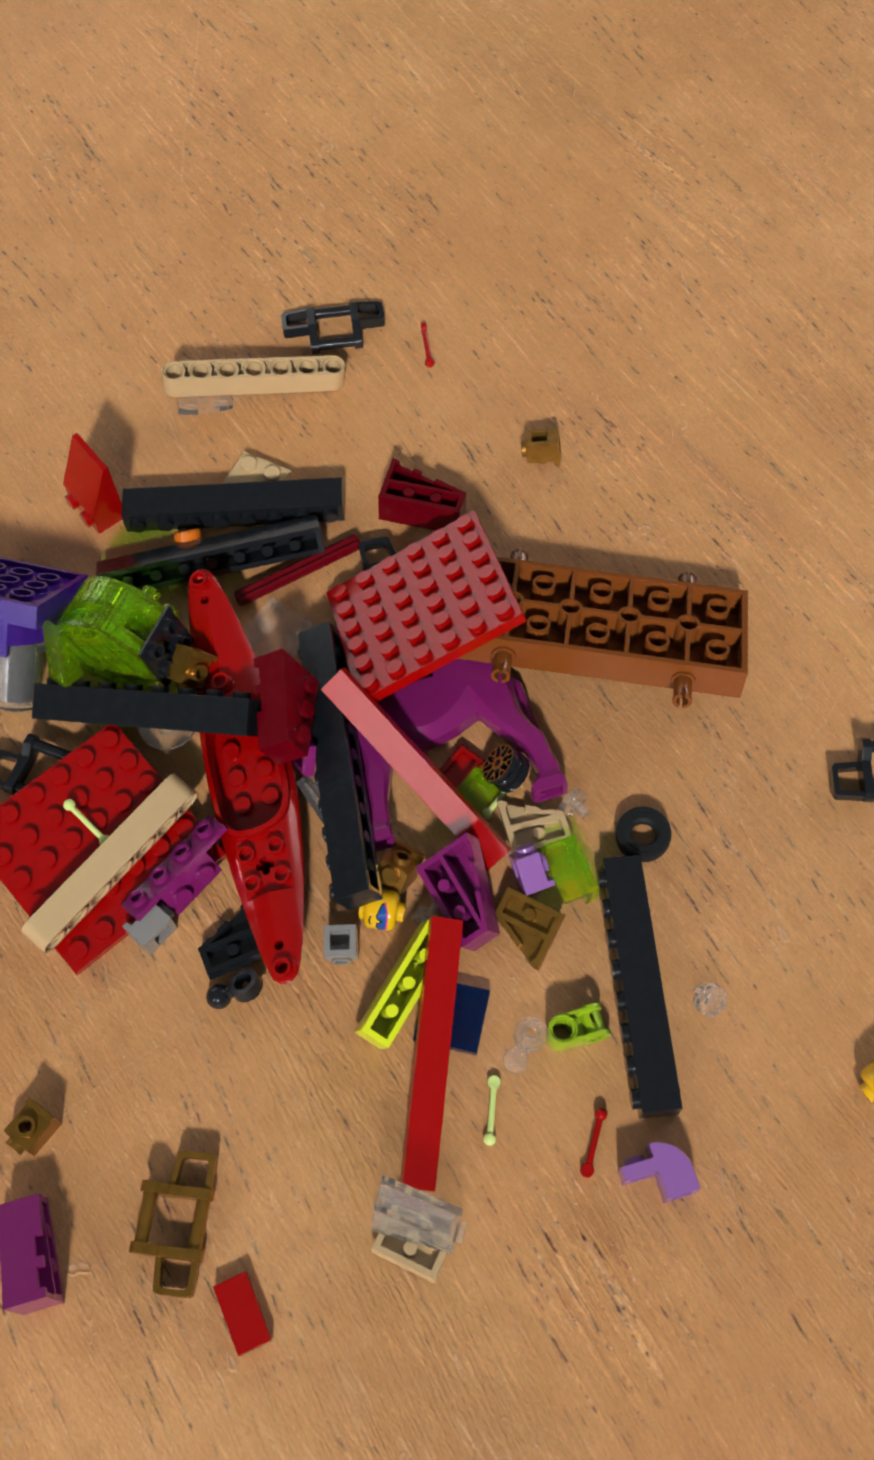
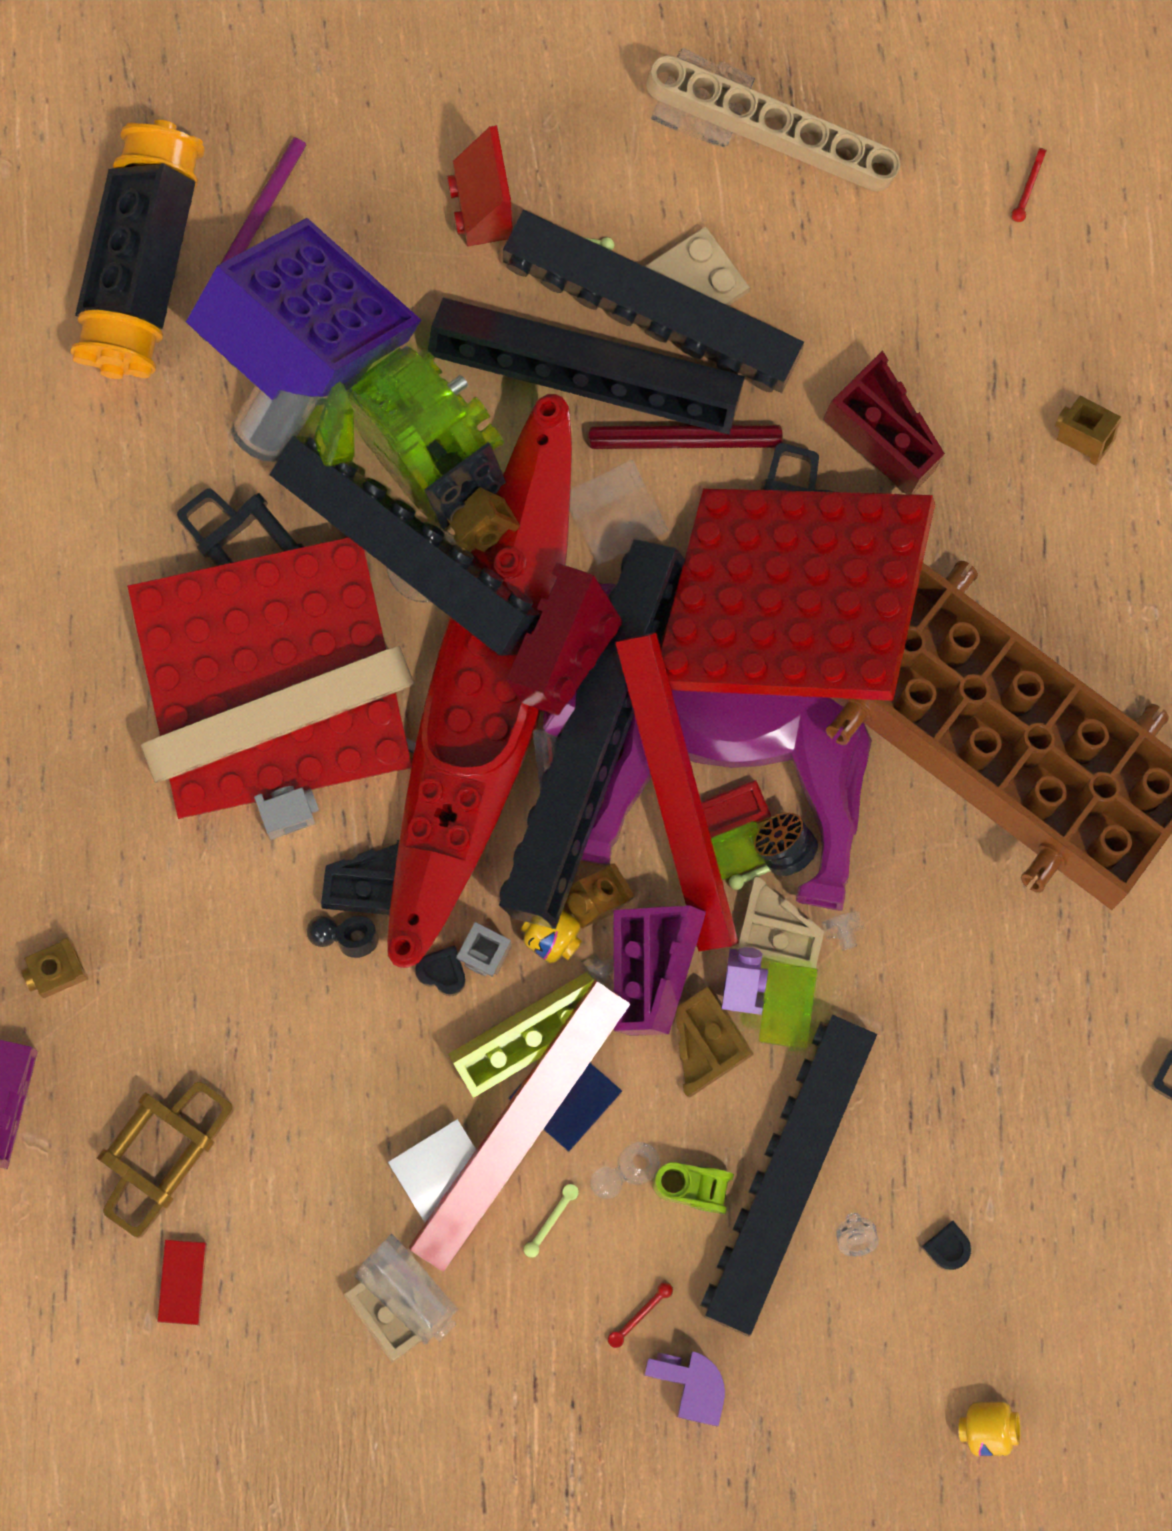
camera: 25 degrees right, 15 degrees up
(69, 805) = (262, 619): yellowish green hinge -> none
(181, 874) = (348, 767): magenta bracket -> none
(187, 536) = (572, 316): orange tile -> none
(311, 314) = (887, 82): black bar -> none
(318, 978) = (442, 971): none -> black tile
(385, 1117) = (433, 1166): none -> white slope
(650, 817) = (901, 982): black tyre -> none
(774, 974) = (949, 1248): none -> black tile

